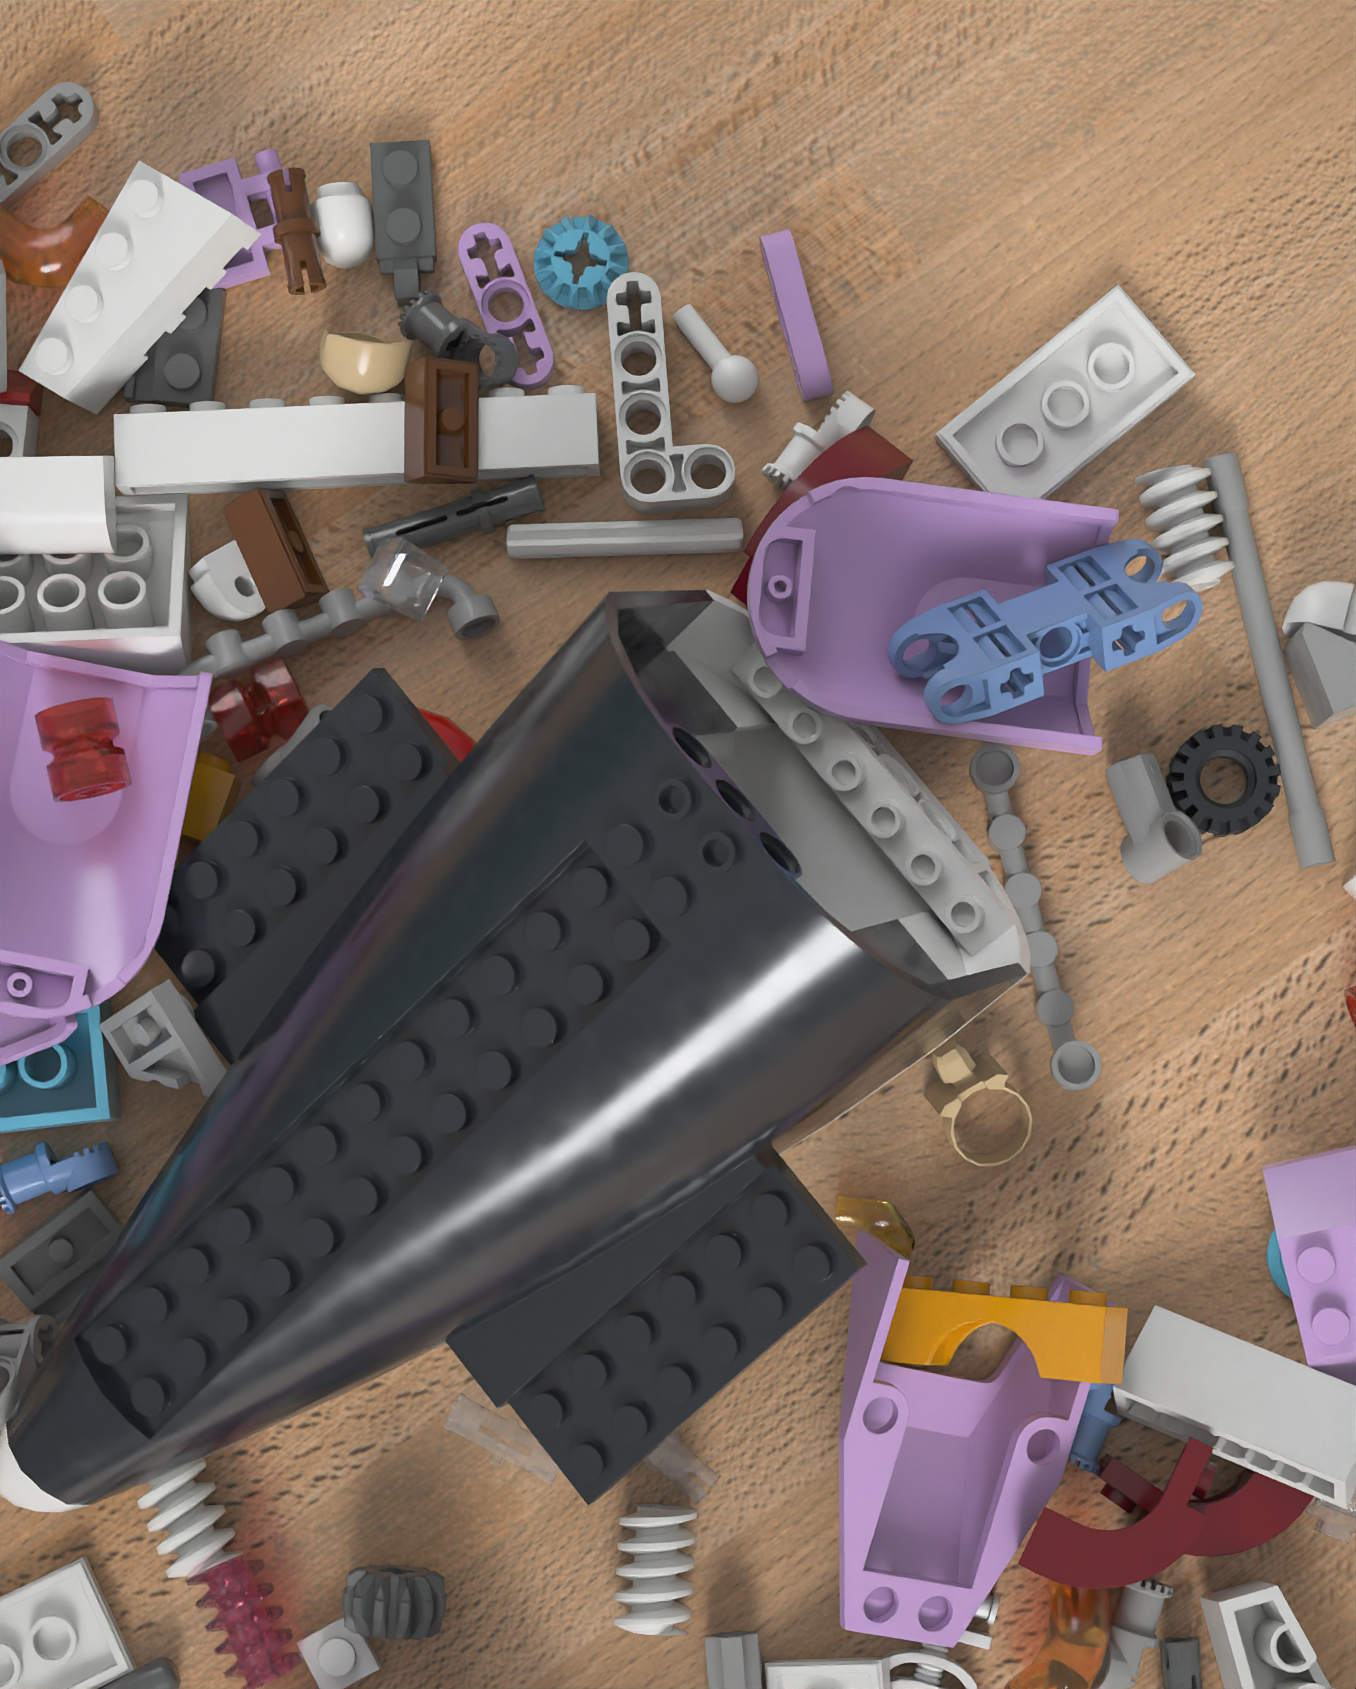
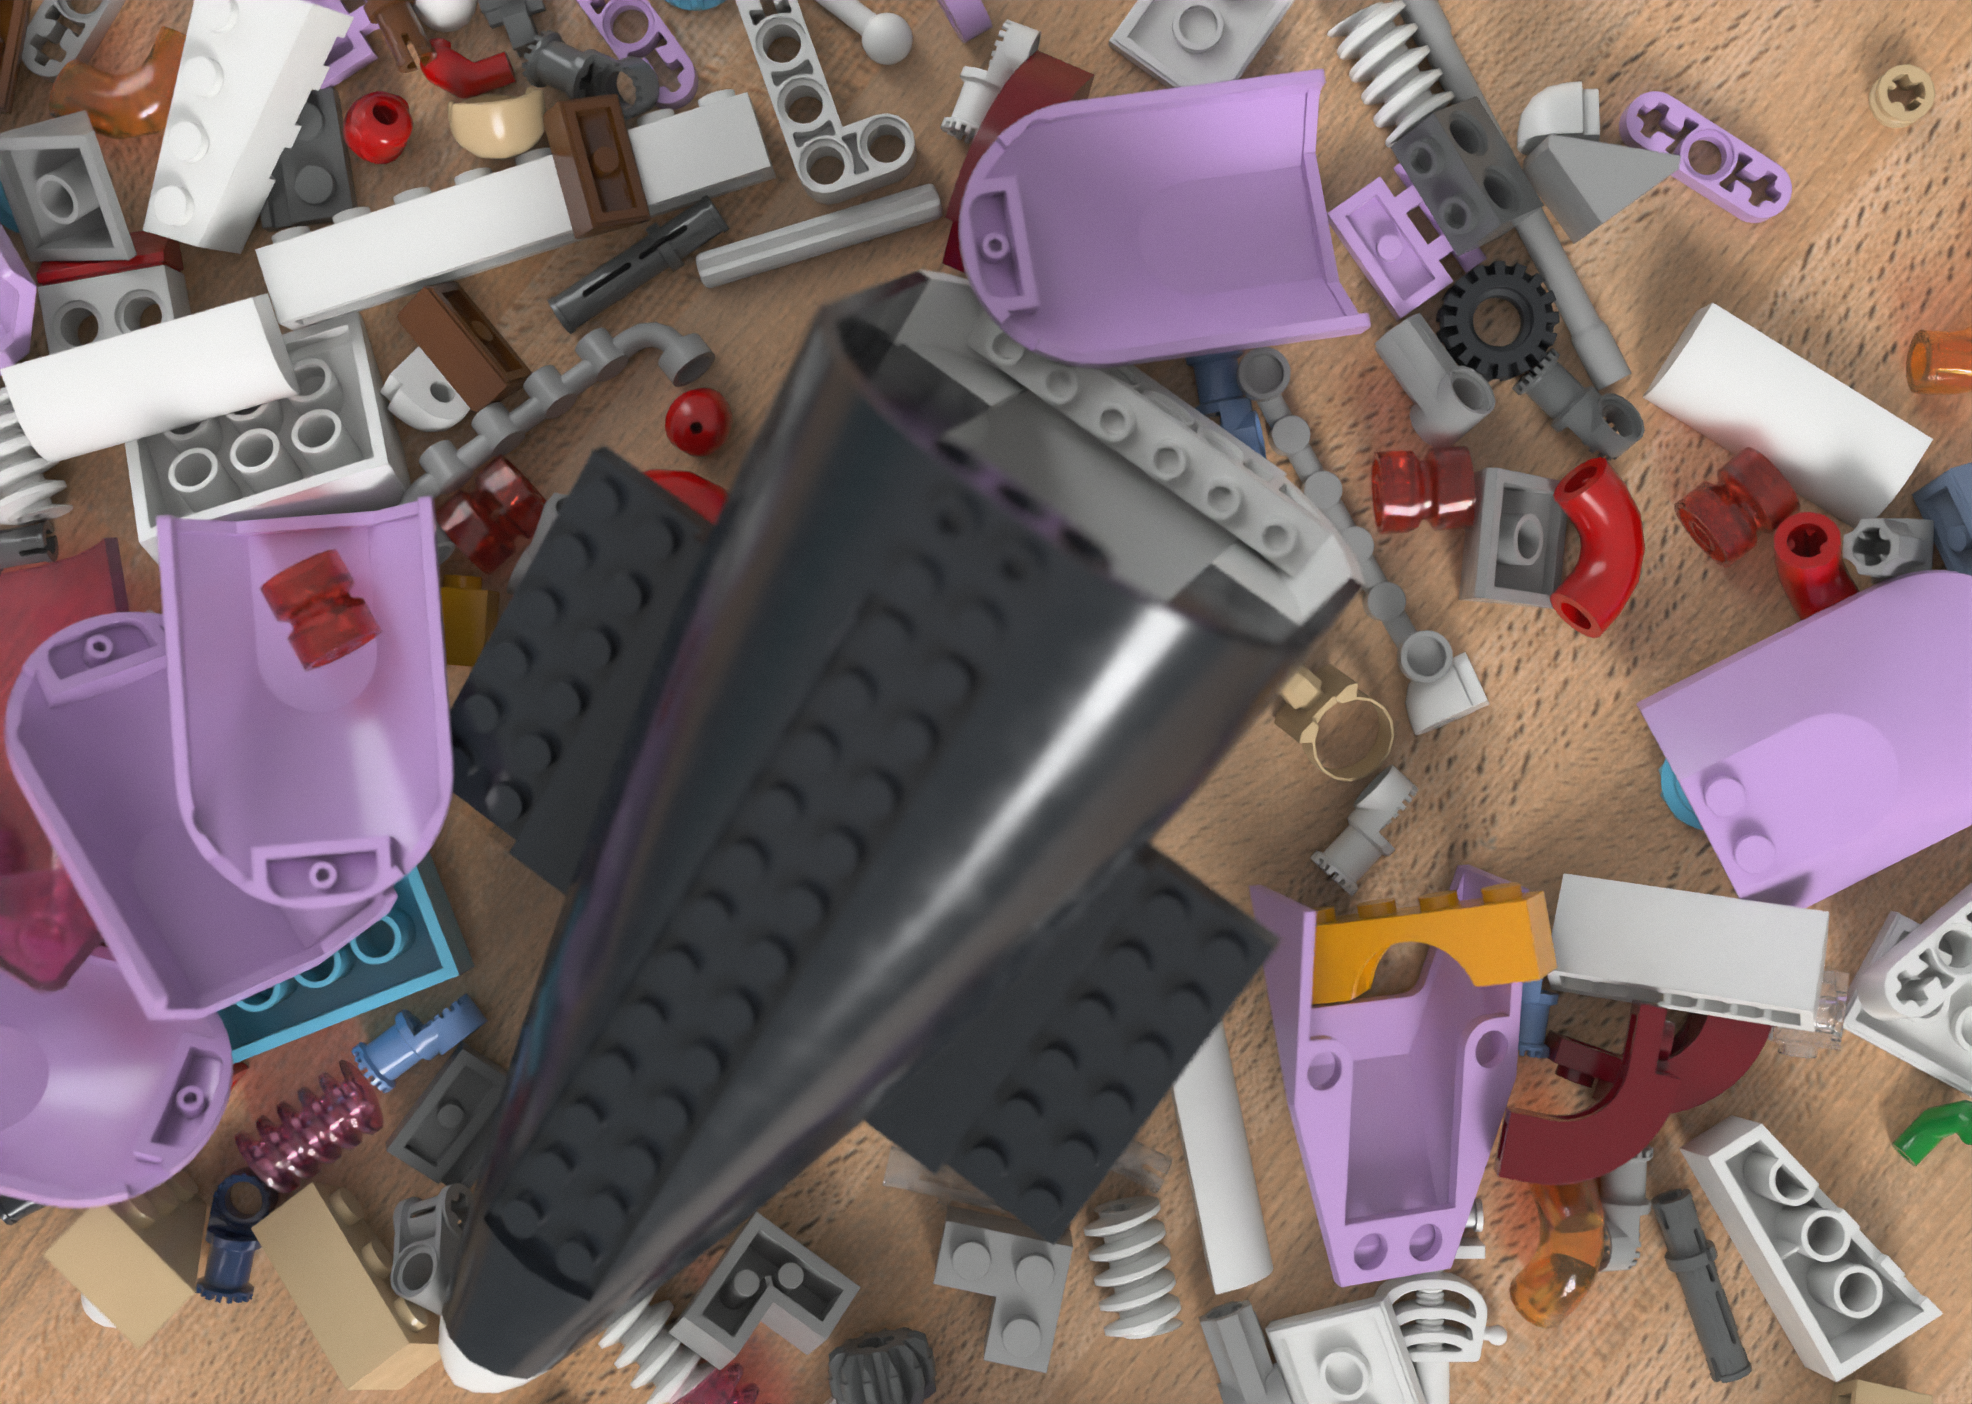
camera: 15 degrees left, 5 degrees up
(163, 1042) = (489, 888): light grey wing -> none
(254, 335) = (378, 127): none -> red piece
(311, 1484) = (765, 1280): none -> light grey brick
(346, 313) = (462, 76): none -> red arm
(403, 577) = (602, 339): clear slope -> none
(480, 665) = (700, 406): none -> red piece
(552, 1543) = (1020, 1272): none -> light grey brick
(763, 1481) = (1221, 1169): none -> white brick
(878, 1219) = (1266, 863): clear yellow arm -> none
(953, 782) = (1222, 397): none -> medium blue connector
(974, 1226) = (1361, 842): none -> white connector
(1044, 630) = (1279, 217): medium blue piece -> none
(1088, 1111) = (1446, 699): none -> white piece
(1114, 914) = (1428, 489): none -> clear red wheel
(1148, 701) = (1390, 247): none -> lavender plate
(1190, 984) = (1514, 541): none -> light grey slope
(1233, 646) = (1467, 175): none -> dark grey brick
(1274, 1012) = (1610, 547): none -> red cylinder
(1281, 880) = (1582, 408): none -> dark grey connector

